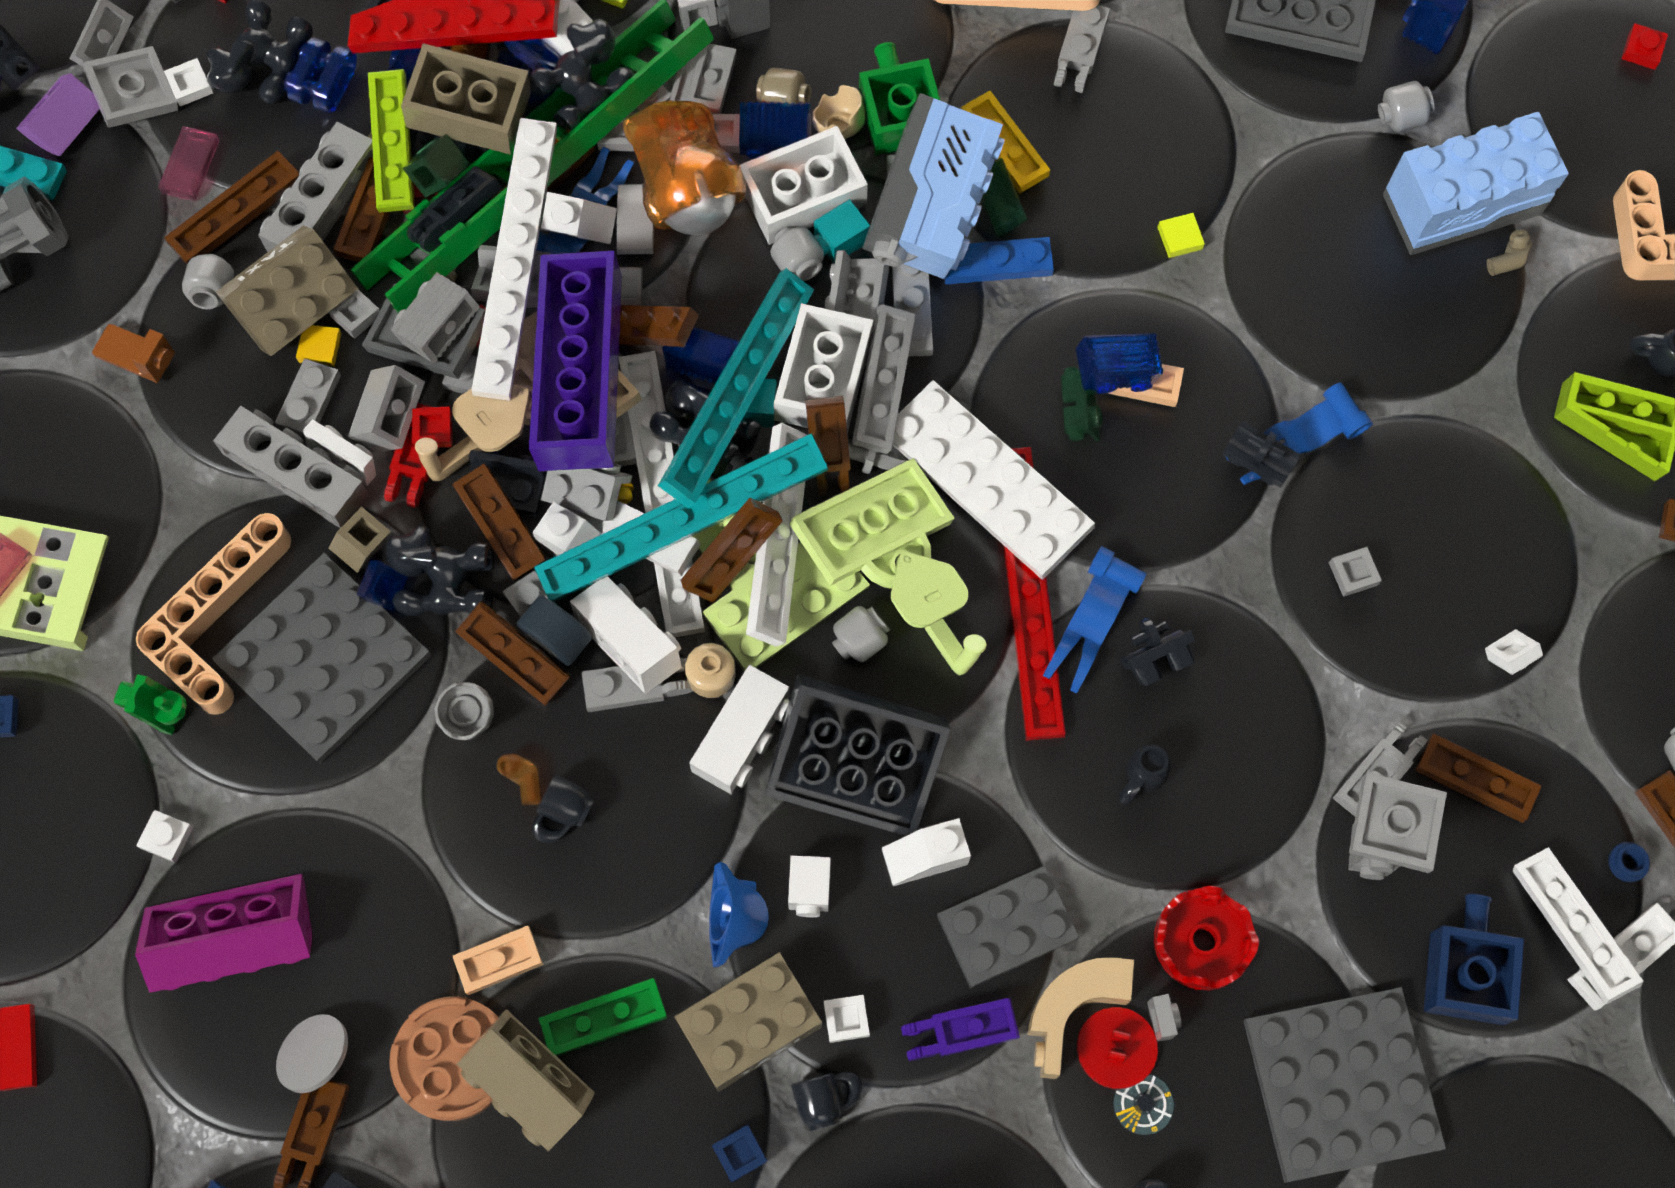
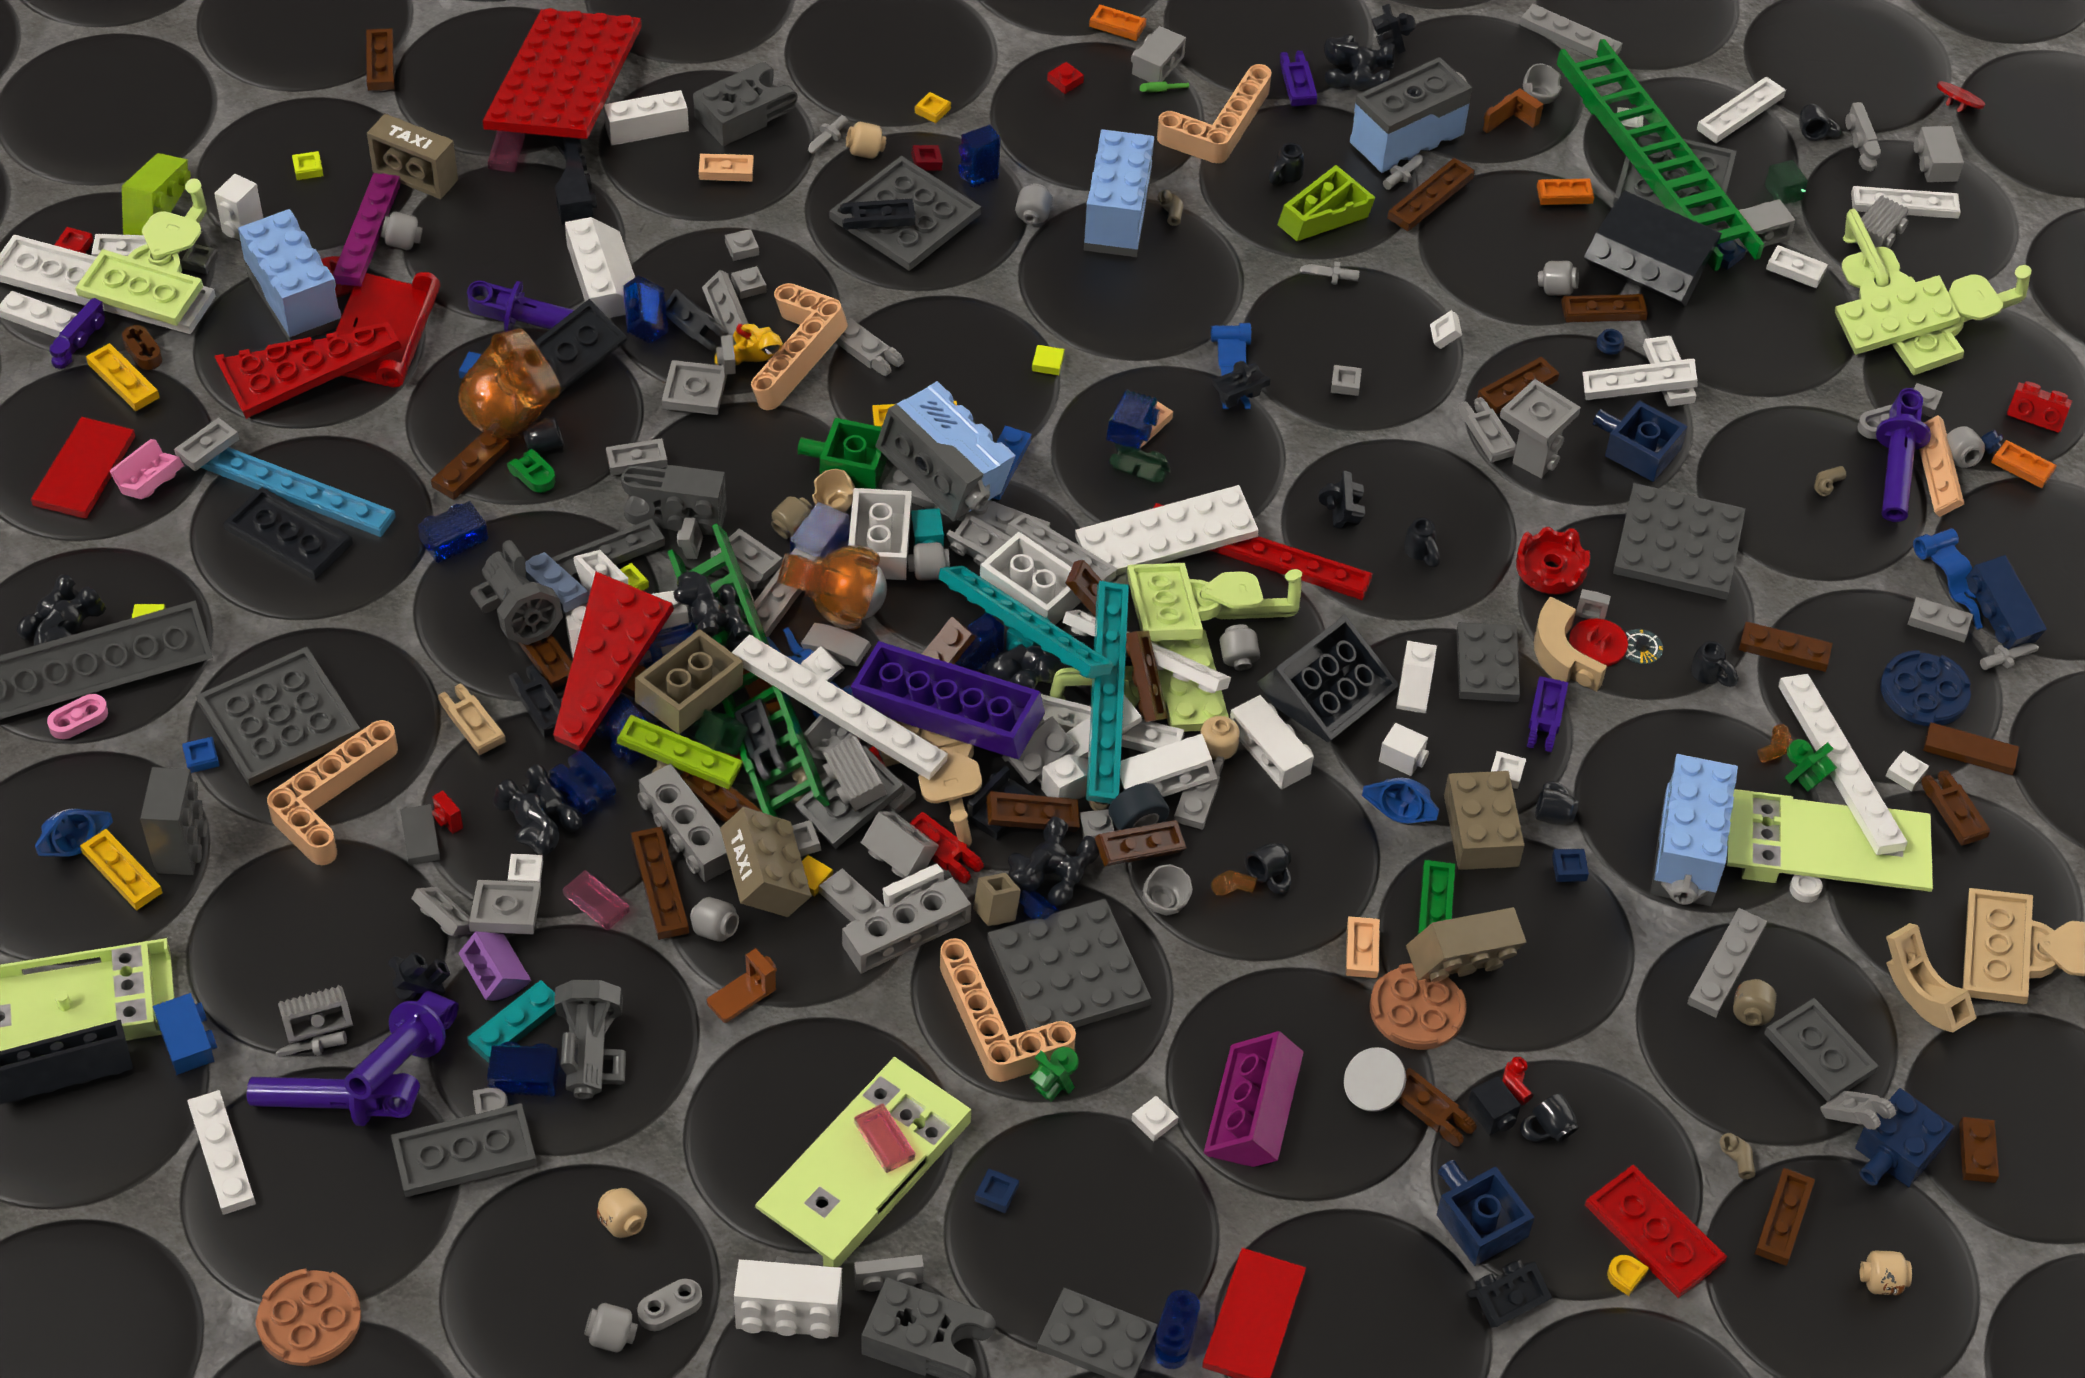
camera: 65 degrees left, 20 degrees down
(433, 424) = (935, 818): red plate -> none
(1096, 611) = (1297, 516): blue flag -> none
(1528, 482) = (1336, 272): none -> light grey piece

